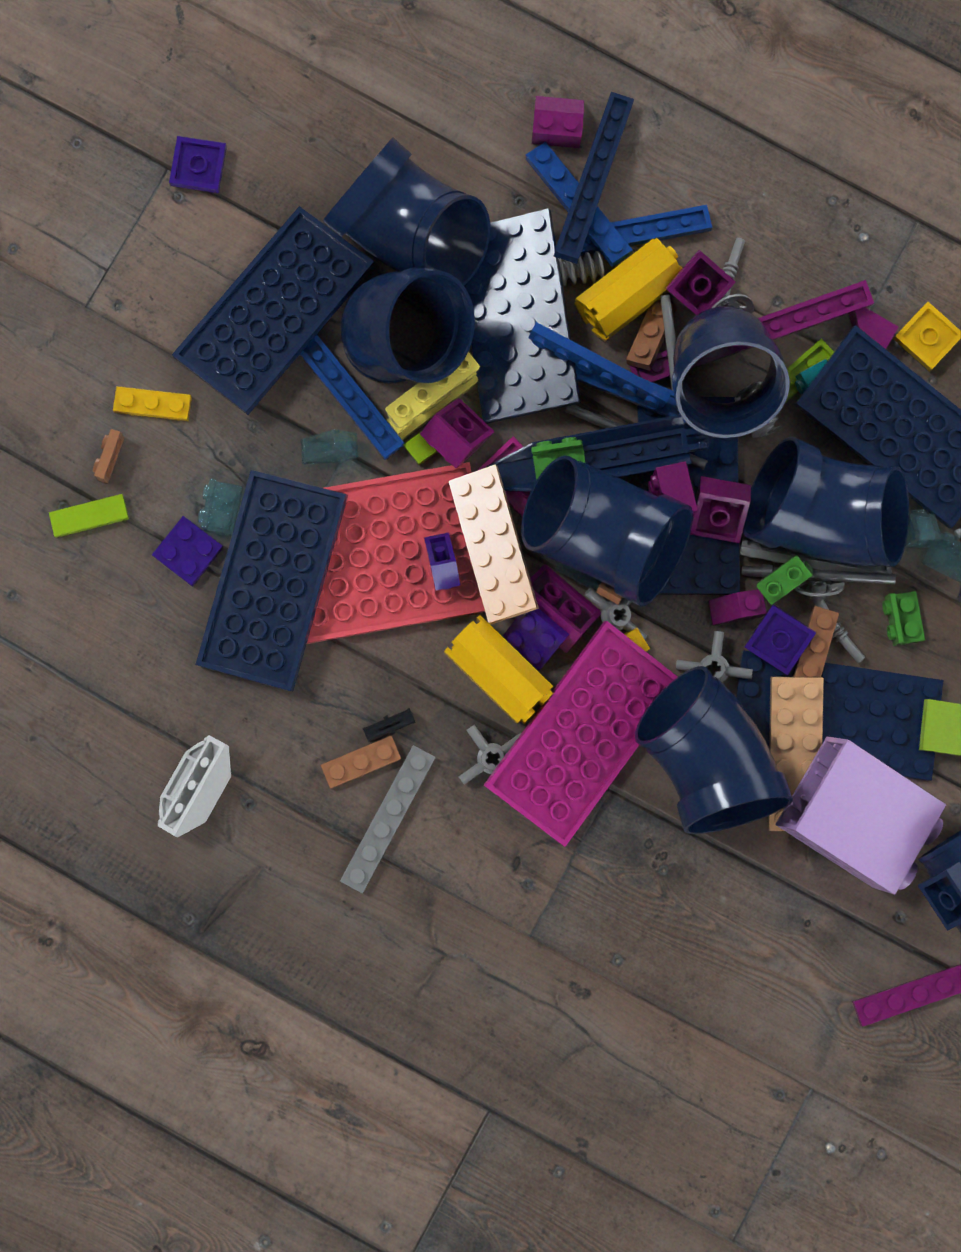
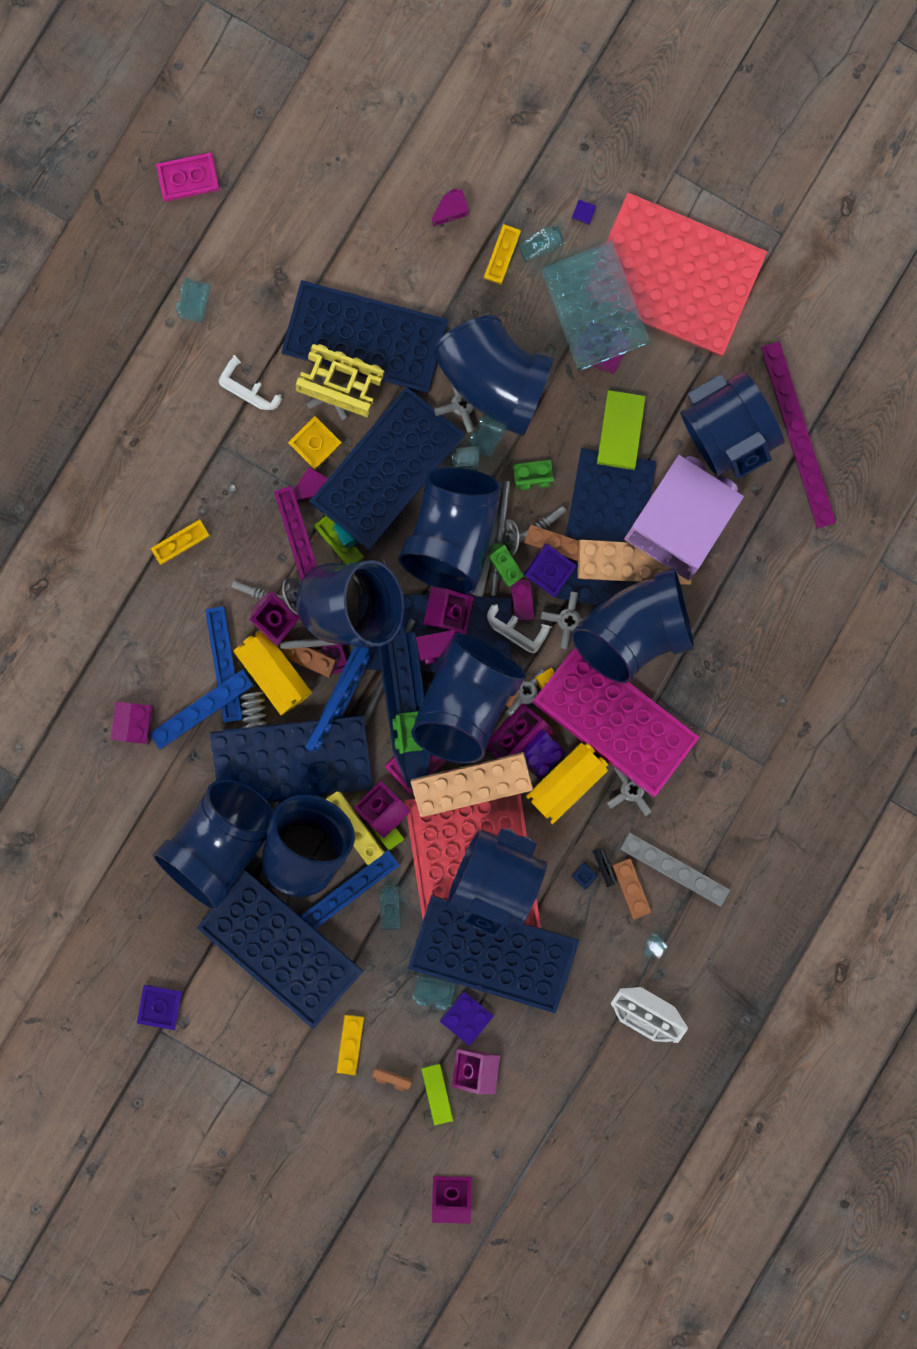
camera: 80 degrees left, 5 degrees up
(118, 564) = (475, 1071): none -> magenta slope
(285, 794) = (655, 946): none -> clear light blue tile
(367, 573) = (497, 881): none -> dark blue cylinder
(376, 700) = (584, 875): none -> dark blue tile
(442, 561) = (490, 822): dark purple slope -> none
(593, 178) = (183, 697): dark blue plate -> none
(690, 596) = (513, 635): none -> white piece
(791, 172) = (180, 542): none -> yellow plate

